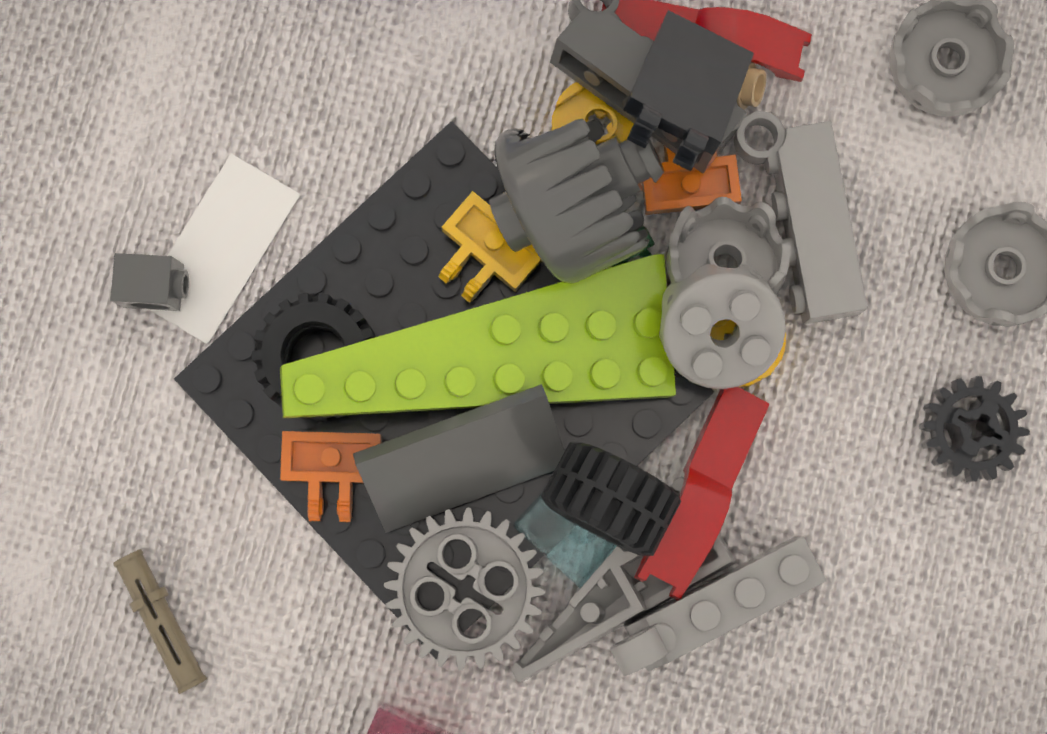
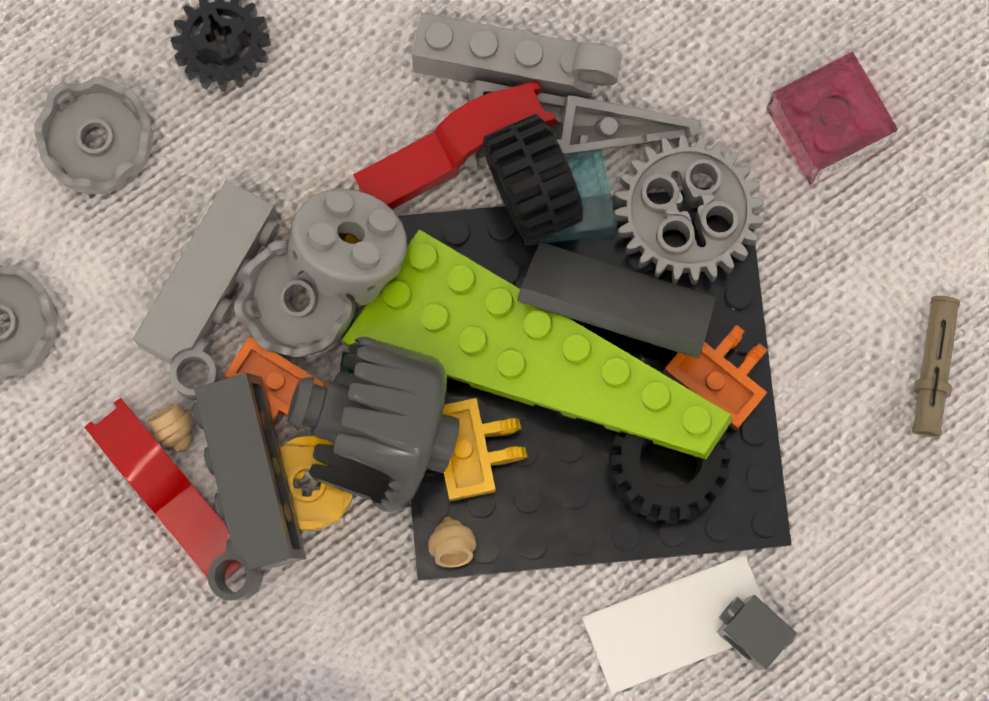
camera: 145 degrees left, 5 degrees down
(444, 161) = (452, 543): none -> tan plate
(687, 88) = (226, 434): black tile -> none

